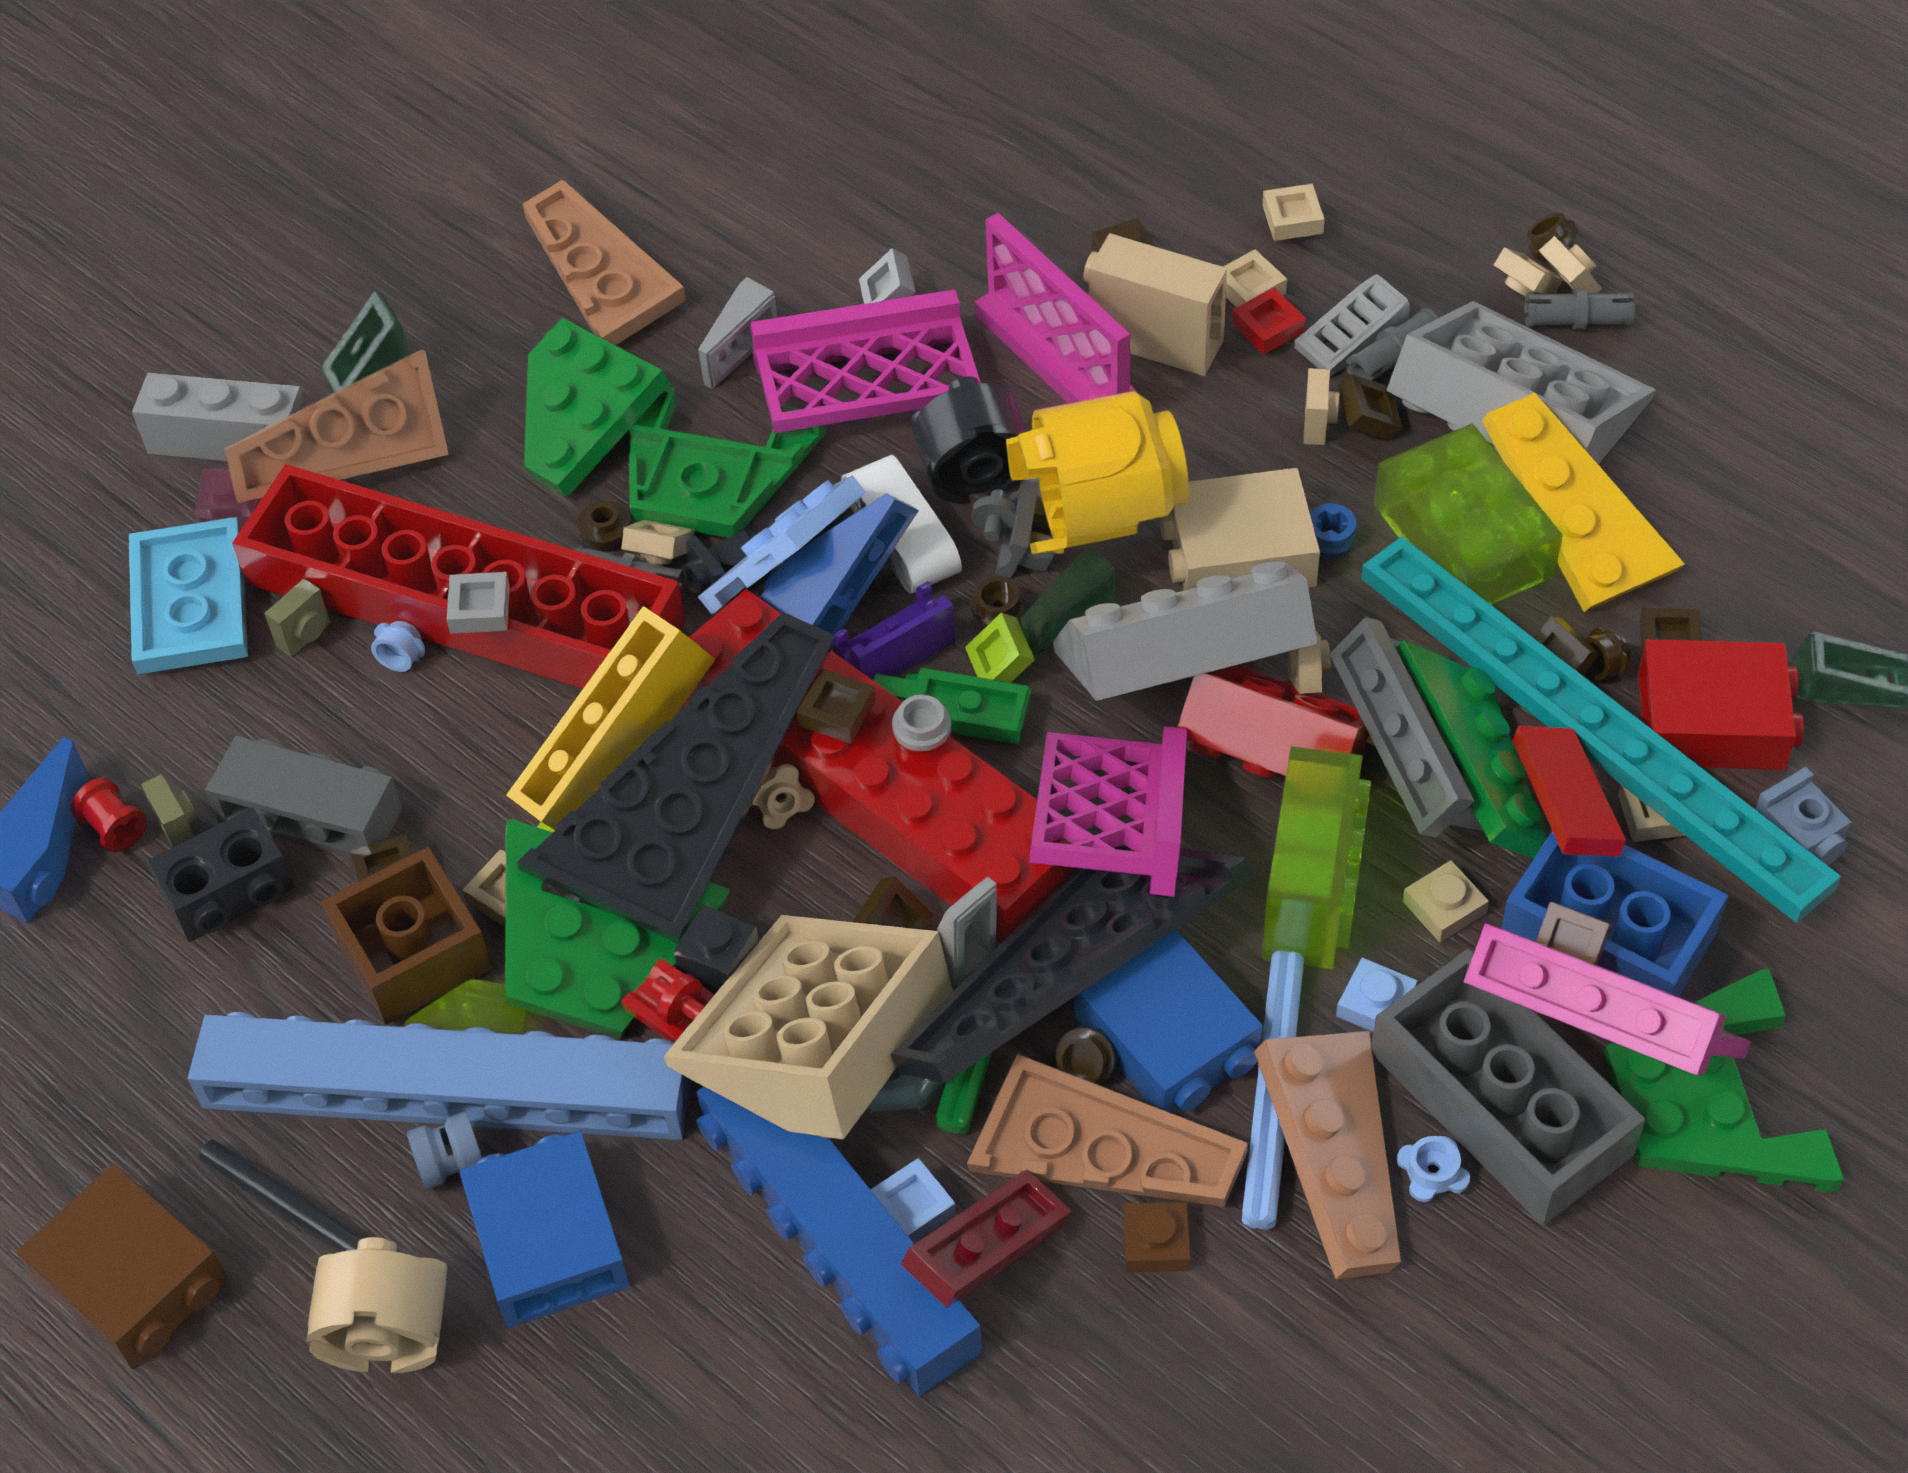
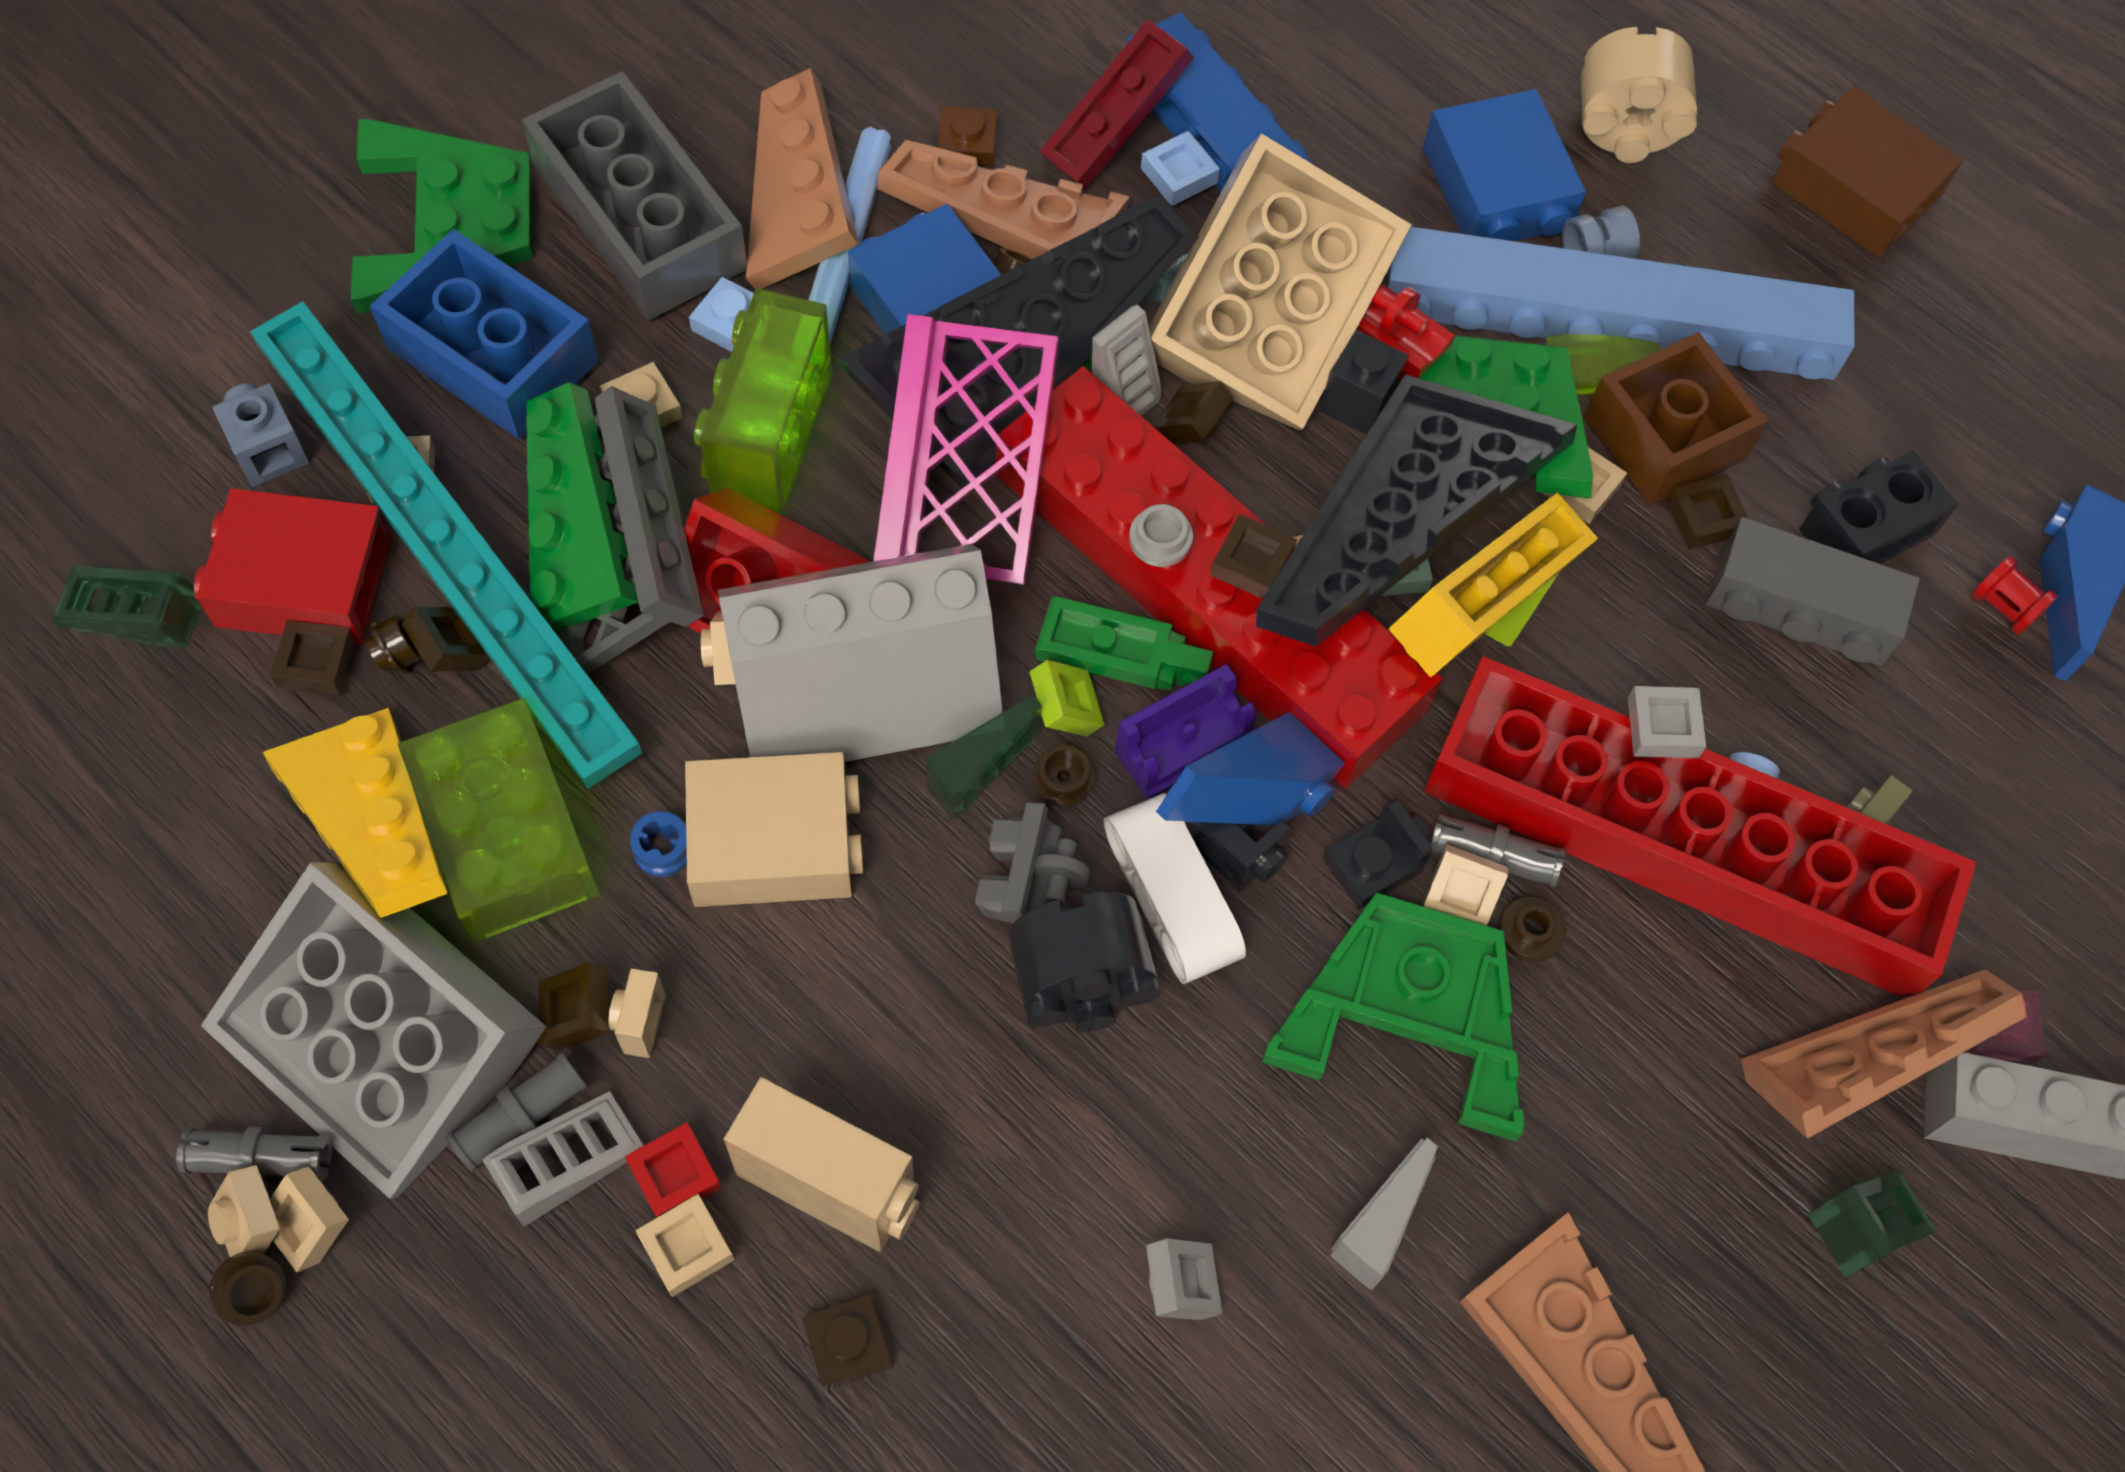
camera: 175 degrees right, 10 degrees up
(171, 810) = (1950, 586): olive plate -> none
(186, 596) = (2027, 883): medium azure plate -> none
(279, 1197) = (1722, 219): black bar -> none
(581, 403) = (1583, 1115): green plate -> none
(789, 534) = (1300, 831): light blue wing -> none
(861, 335) = (1223, 1185): dark pink fence -> none
(1051, 320) = (957, 1148): dark pink fence -> none
(1101, 467) = (930, 821): yellow piece -> none
(1293, 212) = (599, 1376): tan plate -> none
(1433, 1151) = (717, 152): light blue plate -> none
(1568, 791) = (492, 419): red tile -> none
(1574, 932) = (539, 258): plate -> none
(1601, 1001) = (533, 170): fence -> none

